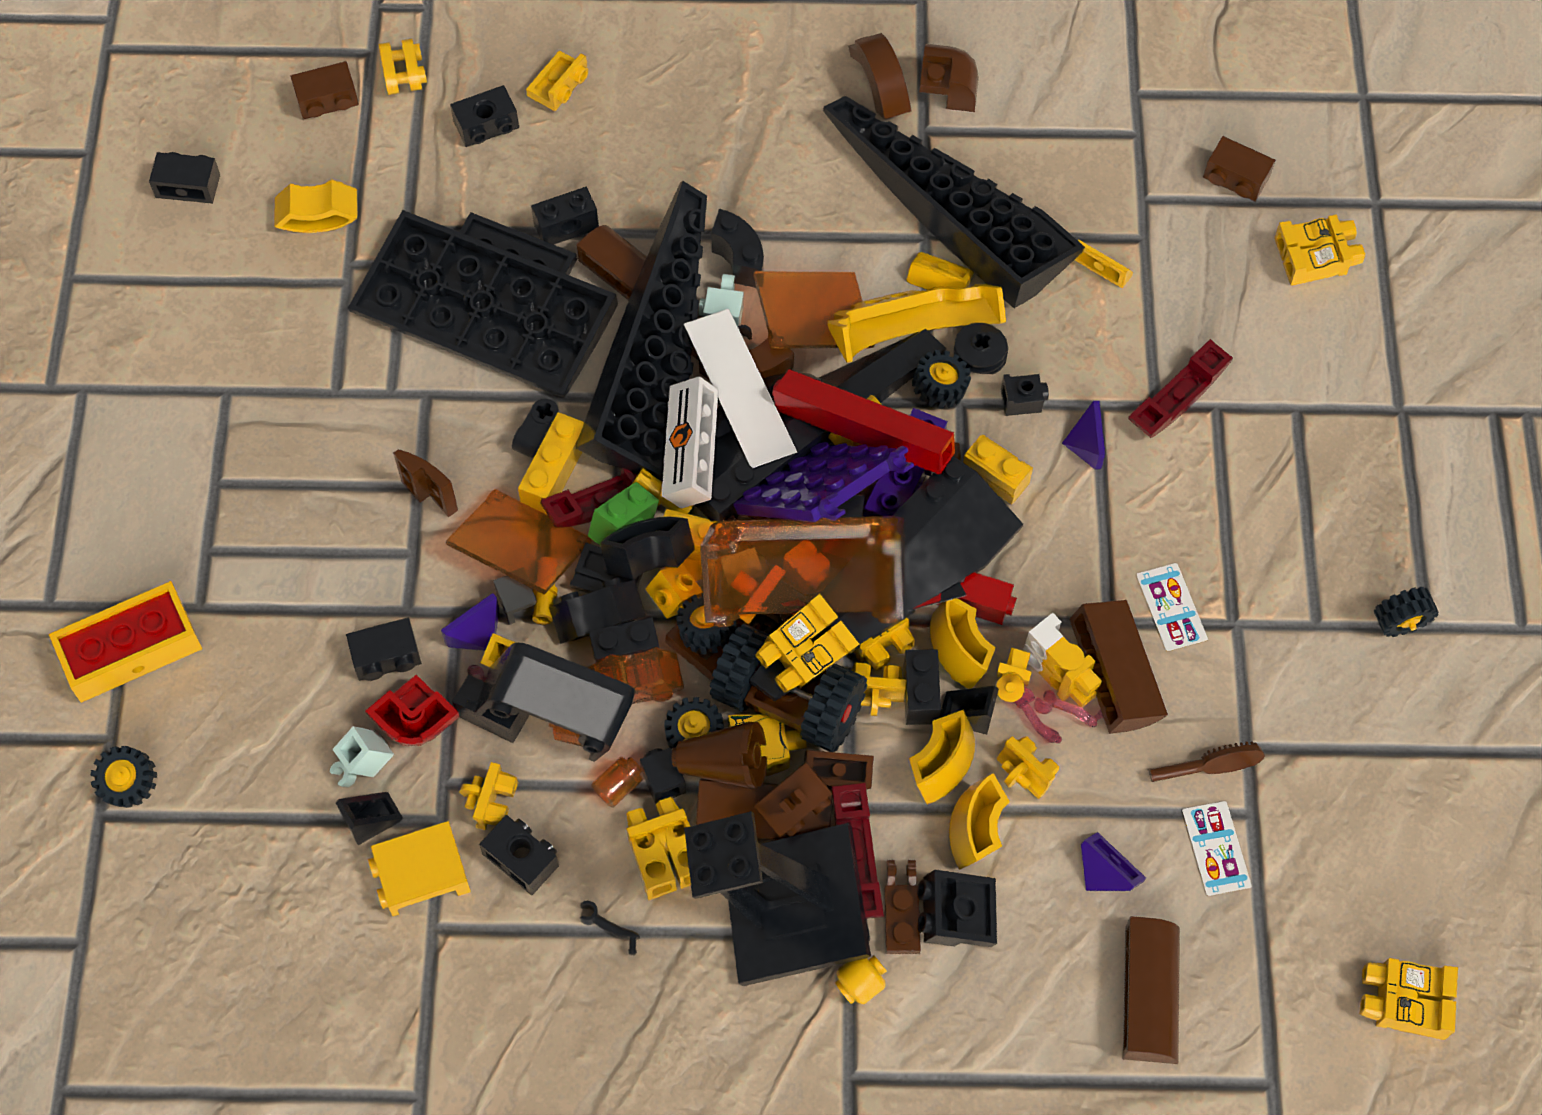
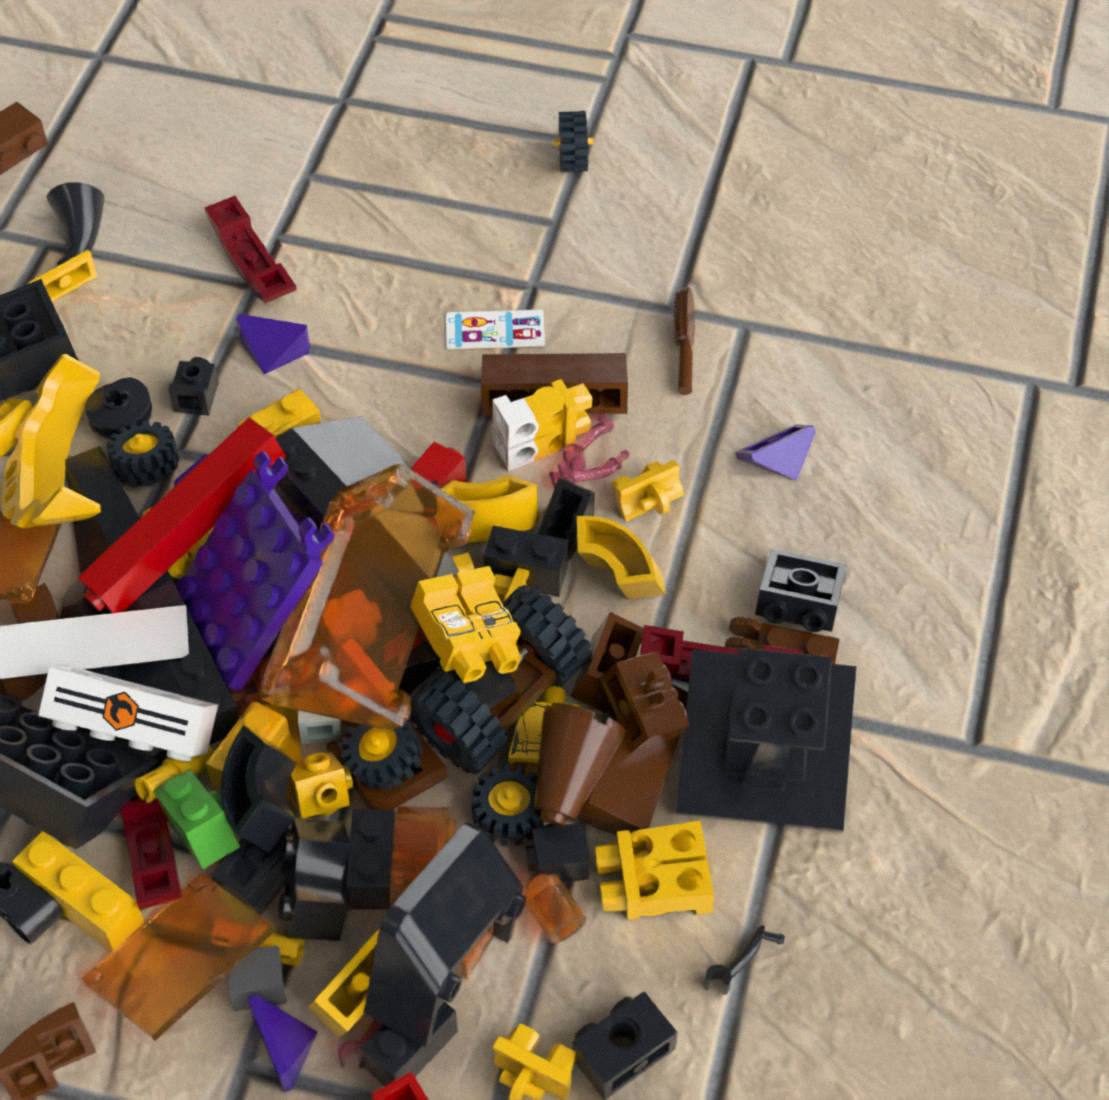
camera: 75 degrees left, 10 degrees down
(861, 979) = (871, 702): yellow head -> none
(975, 821) = (706, 544): yellow brick -> none
(1013, 676) = (537, 463): yellow hips -> none
(1151, 990) = (922, 449): reddish brown brick -> none
(1168, 254) = (80, 214): none -> black hat
(1216, 848) = (775, 361): sticker -> none
(1317, 248) = (133, 102): yellow hips -> none
(1411, 997) = (966, 259): yellow hips -> none

